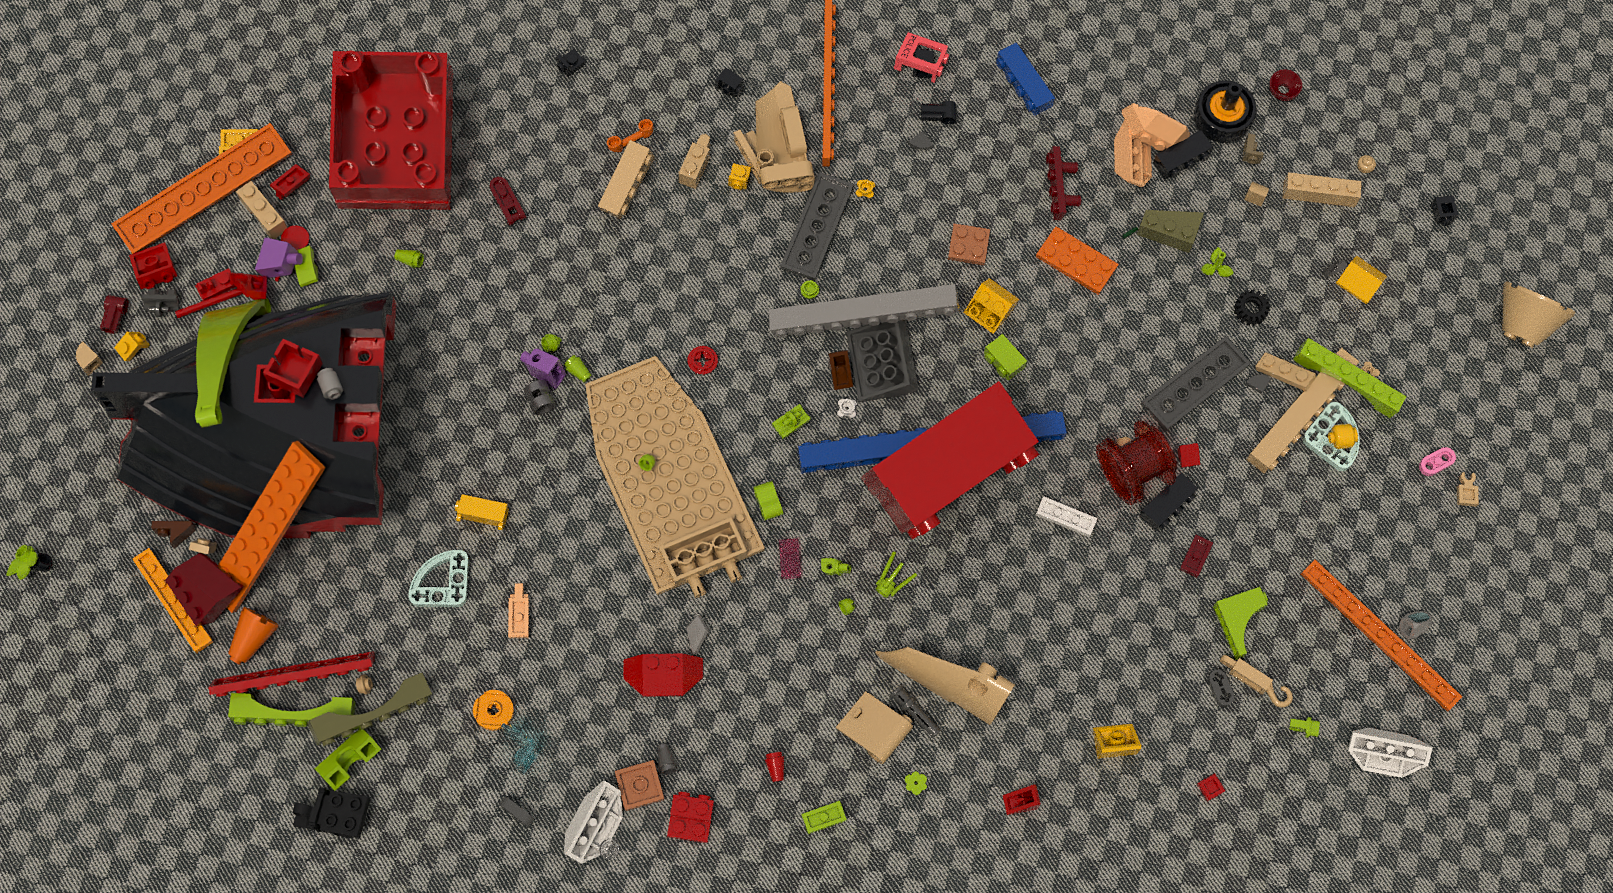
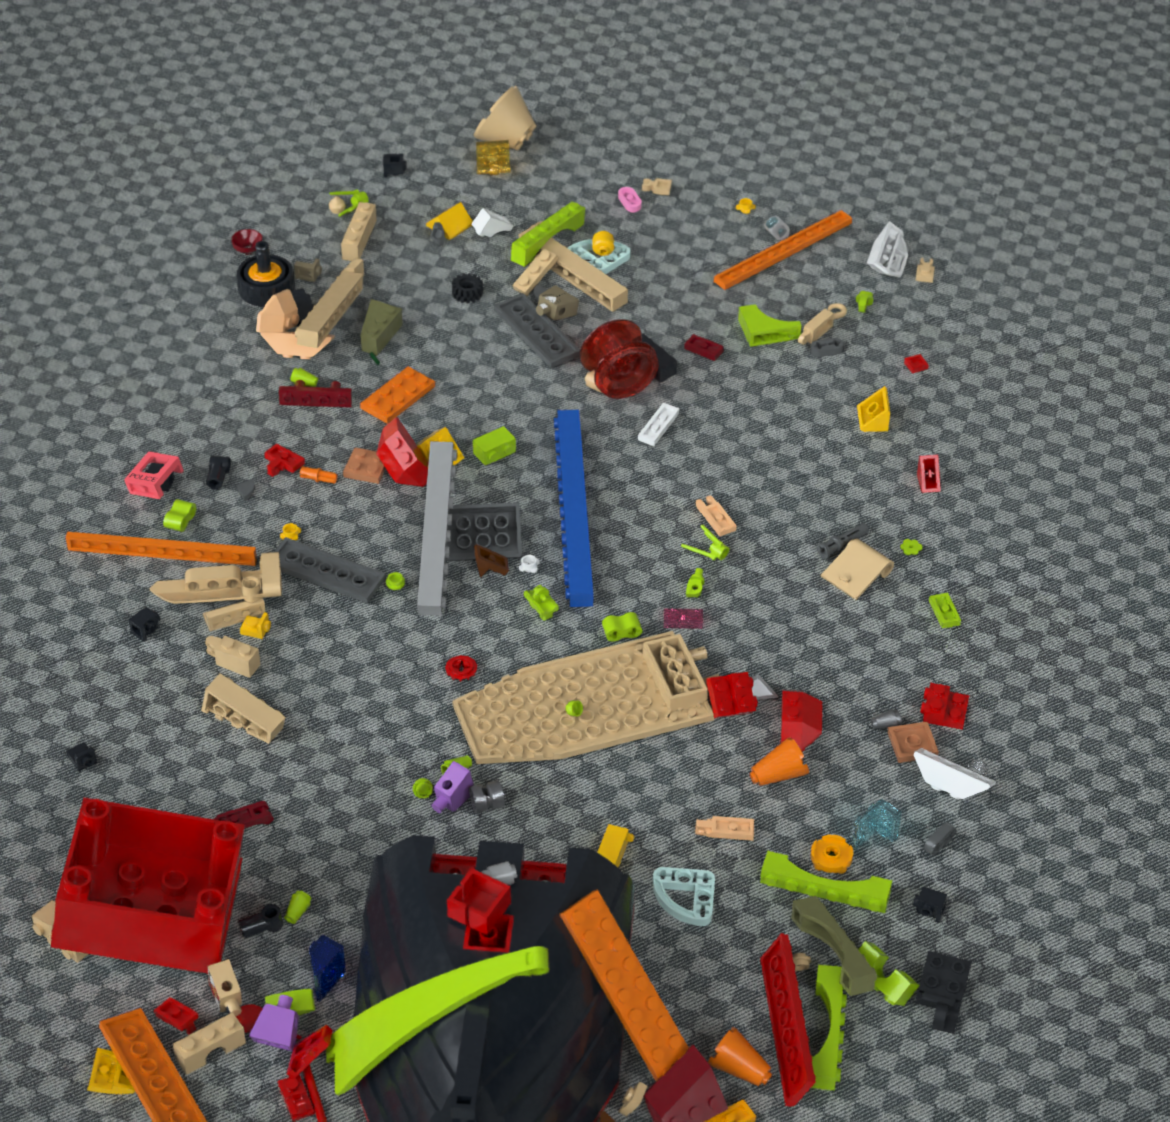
camera: 80 degrees left, 25 degrees down
(314, 213) = (225, 987): none -> tan torso
(335, 282) = (326, 964): none -> clear blue slope
(390, 231) = (268, 919): none -> black piece
(435, 802) = (930, 903): none -> black brick
(467, 661) = (867, 894): none -> lime arch
(595, 659) = (780, 764): none -> orange cone
(616, 144) = (183, 698): orange bar -> none
(675, 605) = (731, 695): none -> red plate
(775, 766) = (894, 640): red cone -> none
(846, 606) = (736, 579): lime hinge -> none
(874, 89) = (179, 515): none -> lime axle
(935, 582) = (716, 516): none -> light nougat hinge
(947, 201) = (318, 475): none -> orange axle
(951, 460) = (615, 457): red piece -> none
(962, 167) = (282, 459): none -> red hinge
(968, 688) = (828, 492): tan panel -> none
(975, 269) = (402, 455): none -> red wedge
(1025, 79) = (196, 407): blue brick -> none
(1085, 168) = (301, 374): none -> lime cone
(1176, 174) = (329, 309): none -> tan brick
(1217, 258) = (421, 304): lime plant -> none
(1236, 397) = (557, 304): none -> dark tan torso
(1362, 320) = (489, 223): none -> white arch
(1373, 797) = (925, 271): none -> tan plate
(1374, 183) = (355, 199): none -> lime plant
(1458, 588) = (745, 205): none -> yellow plate
(1471, 309) = (493, 157): none -> clear yellow plate

